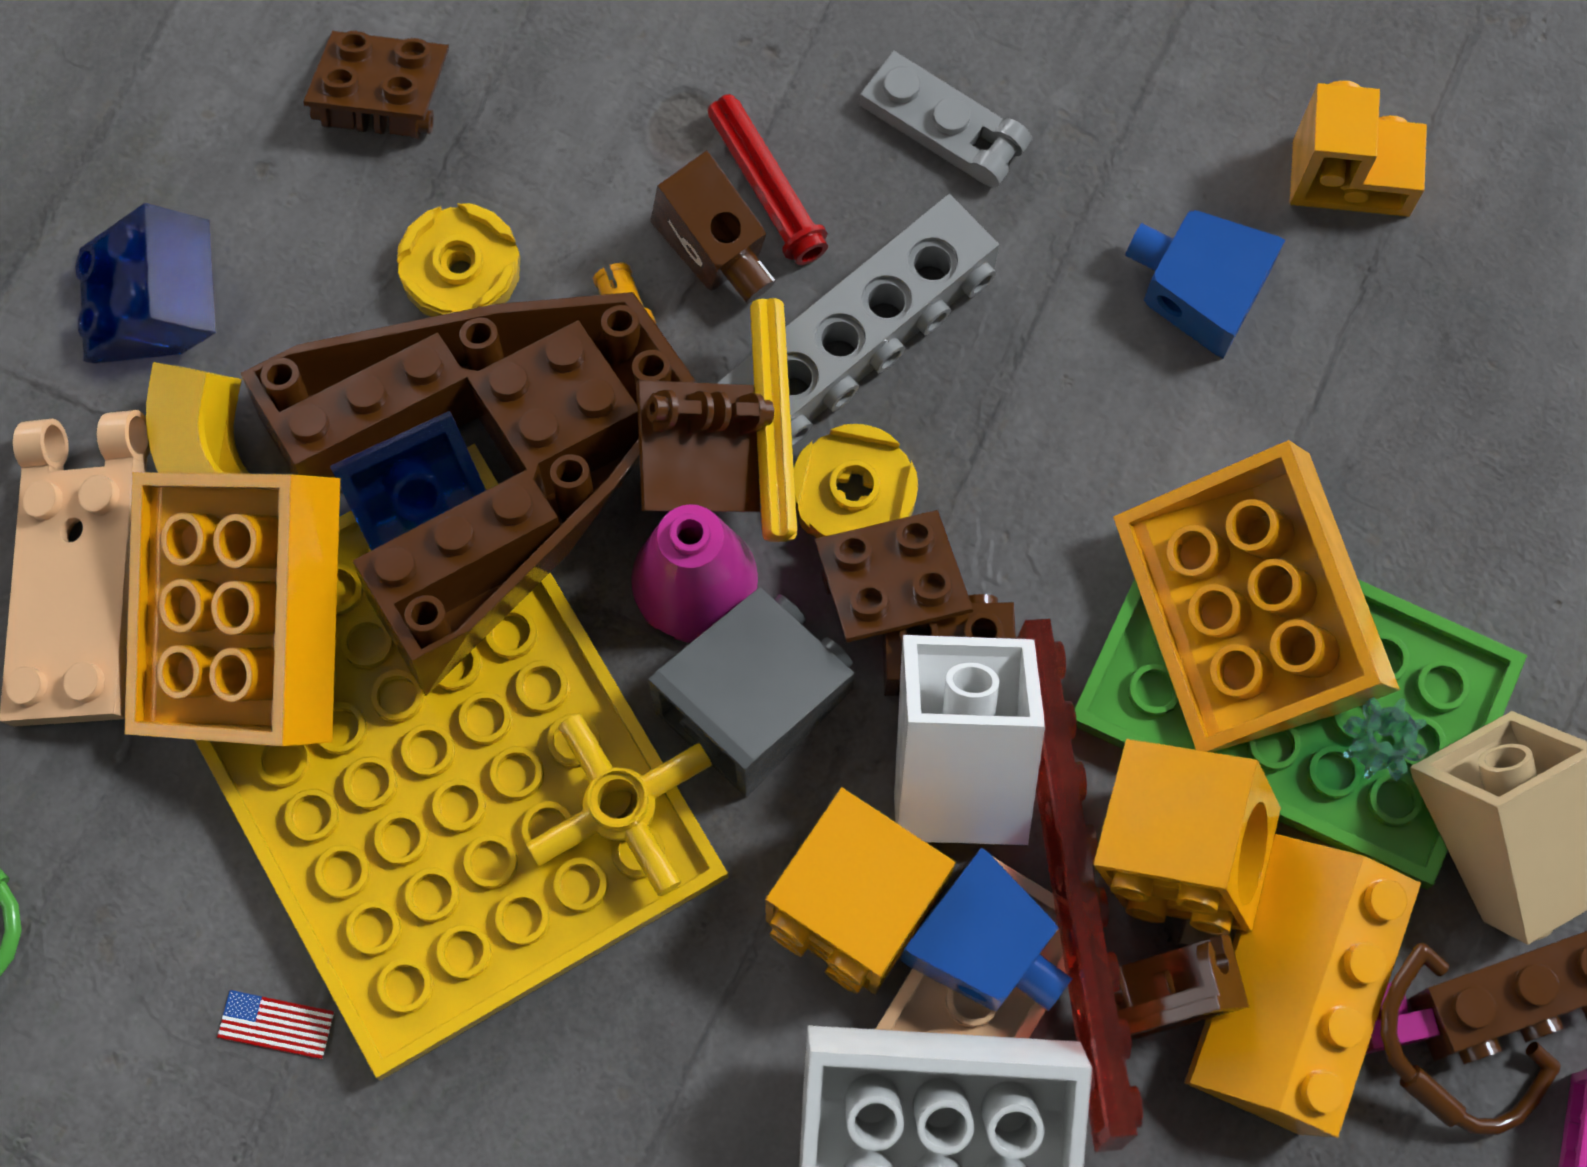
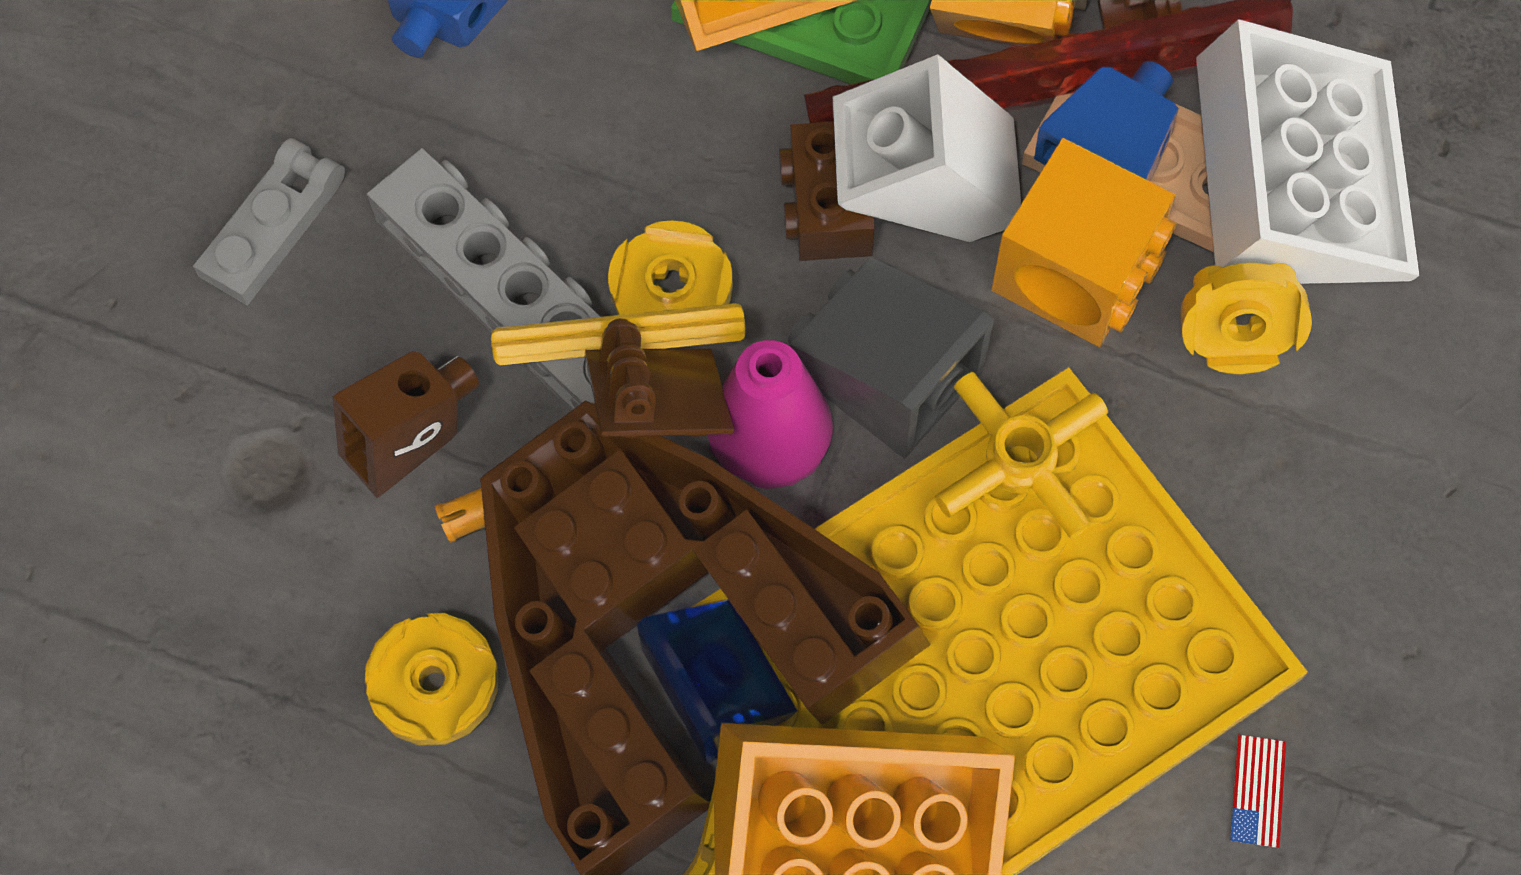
camera: 90 degrees left, 5 degrees down
(376, 77) = (209, 787): reddish brown hinge -> none
(763, 1058) = (1238, 289): none -> yellow plate
(802, 238) = (318, 388): red axle -> none
(892, 576) = (770, 230): reddish brown hinge -> none

